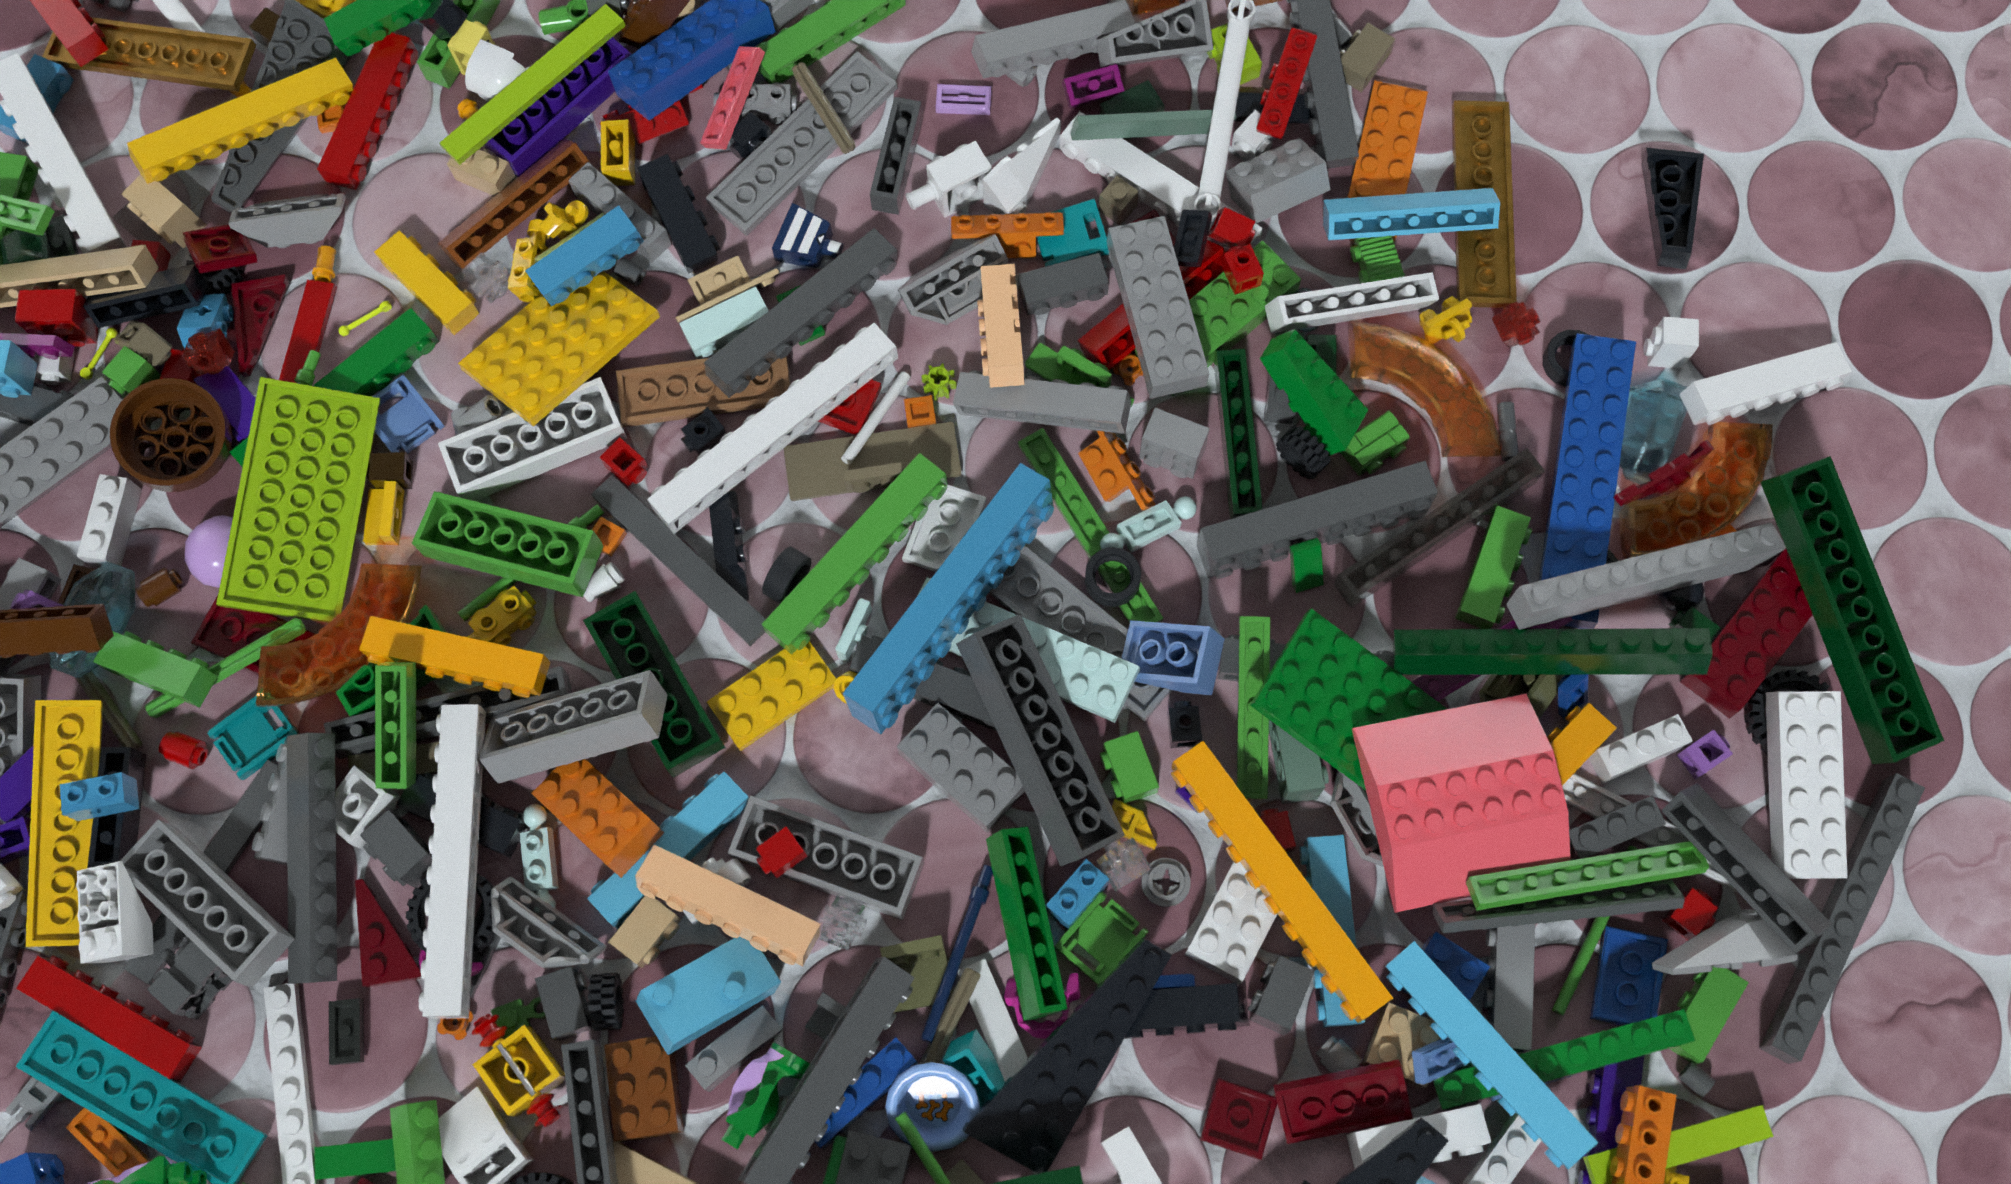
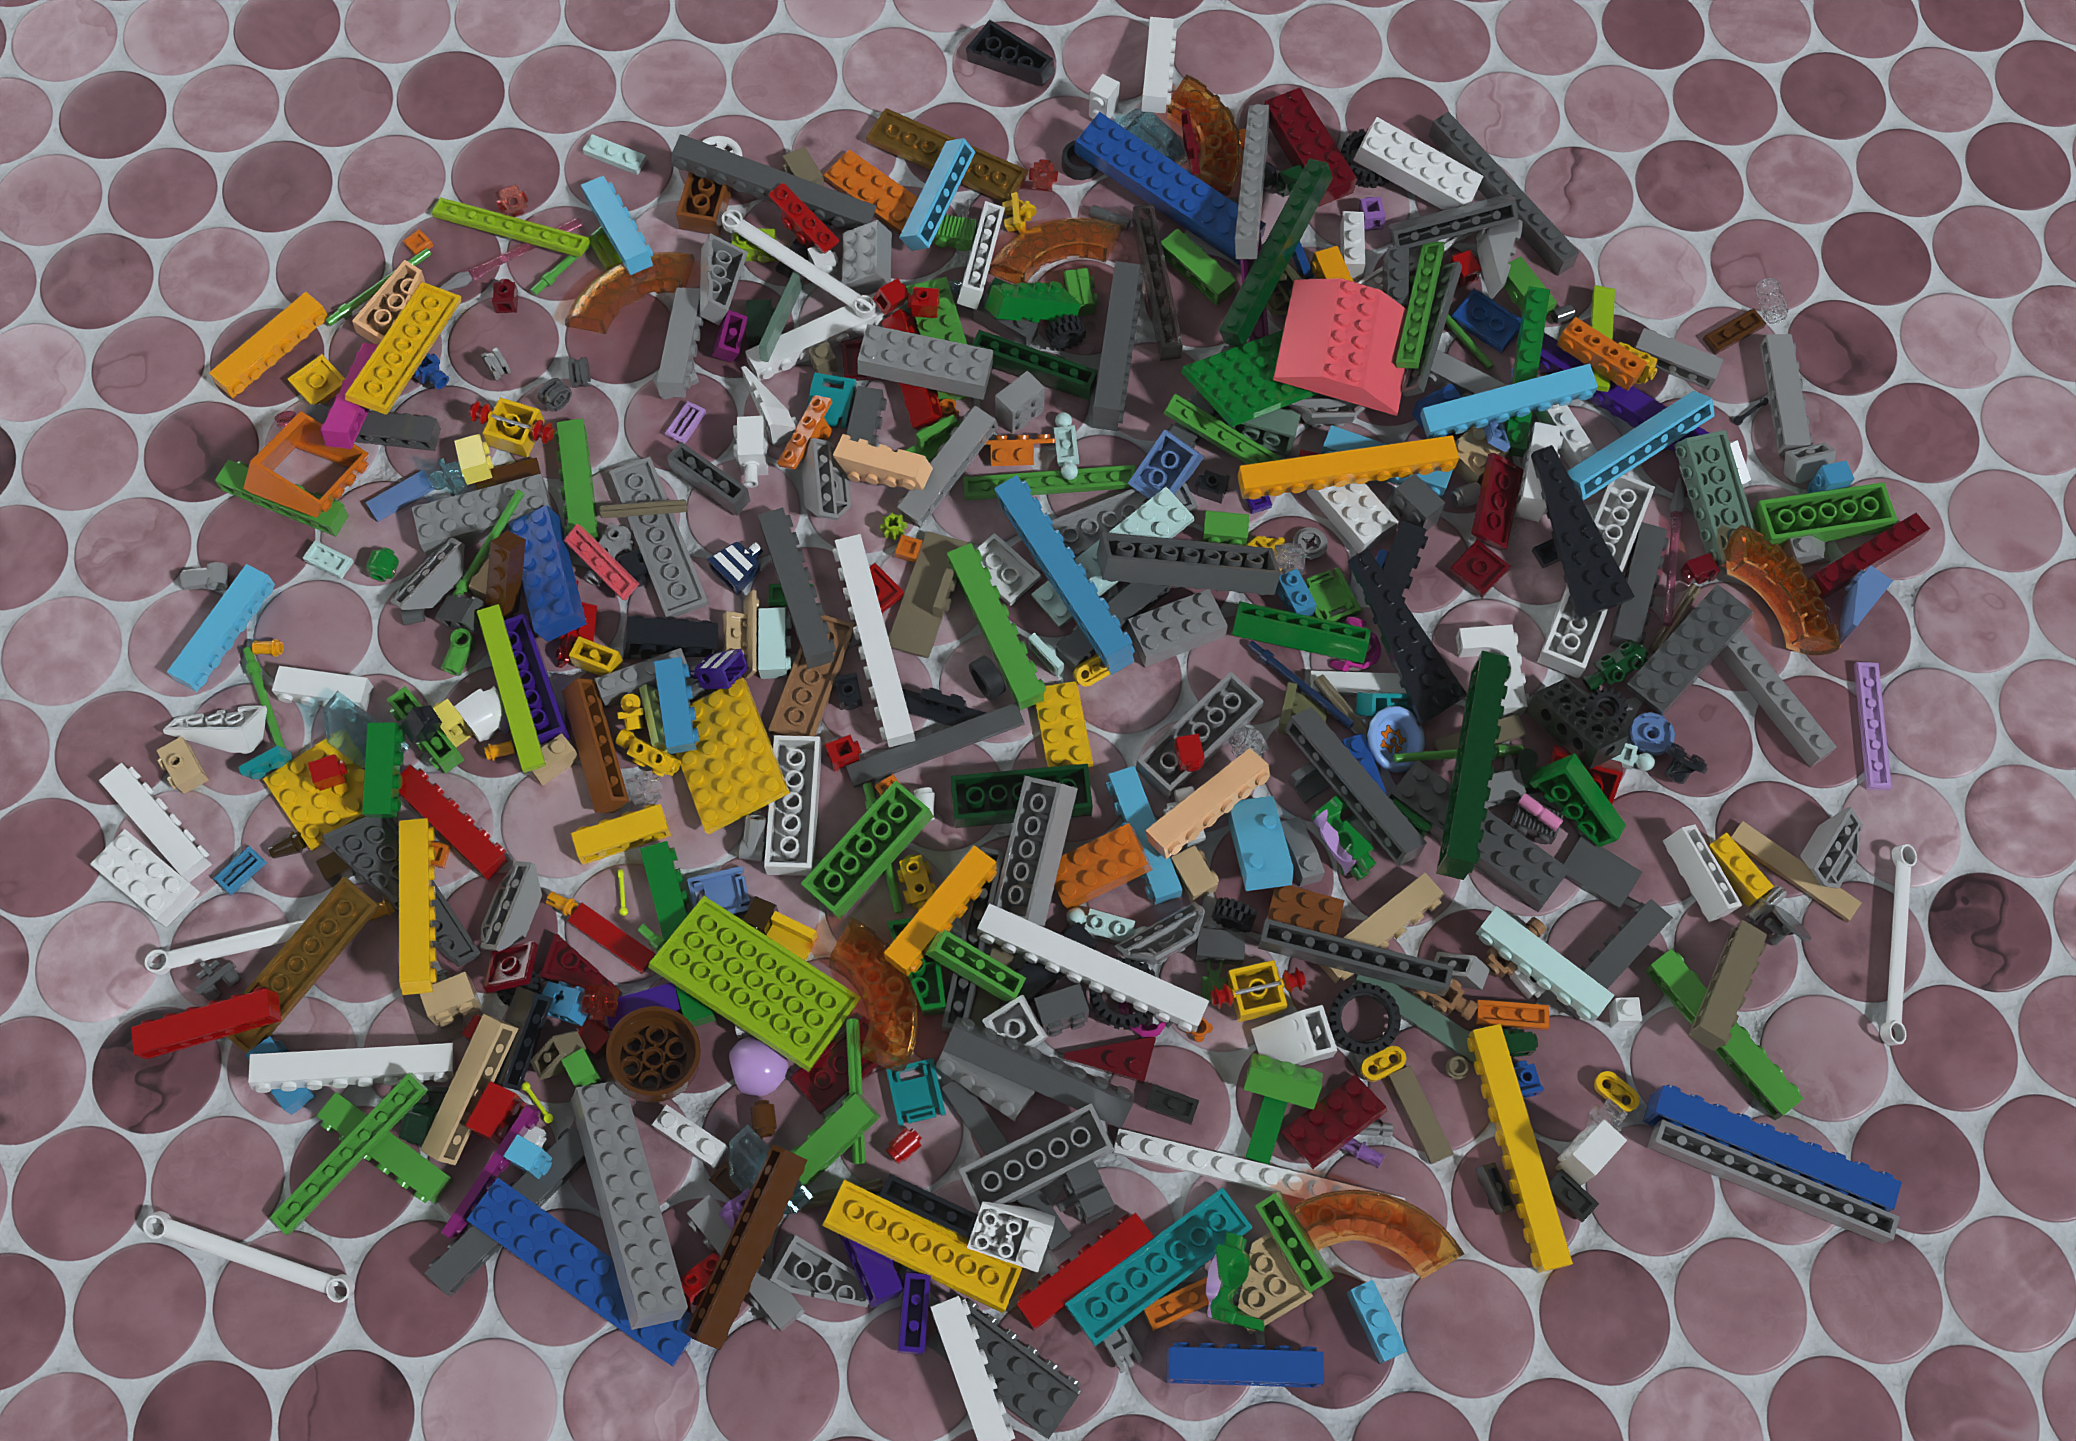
camera: 70 degrees left, 5 degrees down
(99, 796) = (923, 1202): dark azure brick -> none
(661, 284) = (720, 669): none -> dark purple torso
(875, 418) = (903, 583): white bar -> none
(1117, 555) = (1097, 464): black tyre -> none
(1192, 237) = (879, 317): black plate -> none
(1306, 565) = (1144, 364): green tile -> none
(1852, 611) = (1326, 88): dark green brick -> none

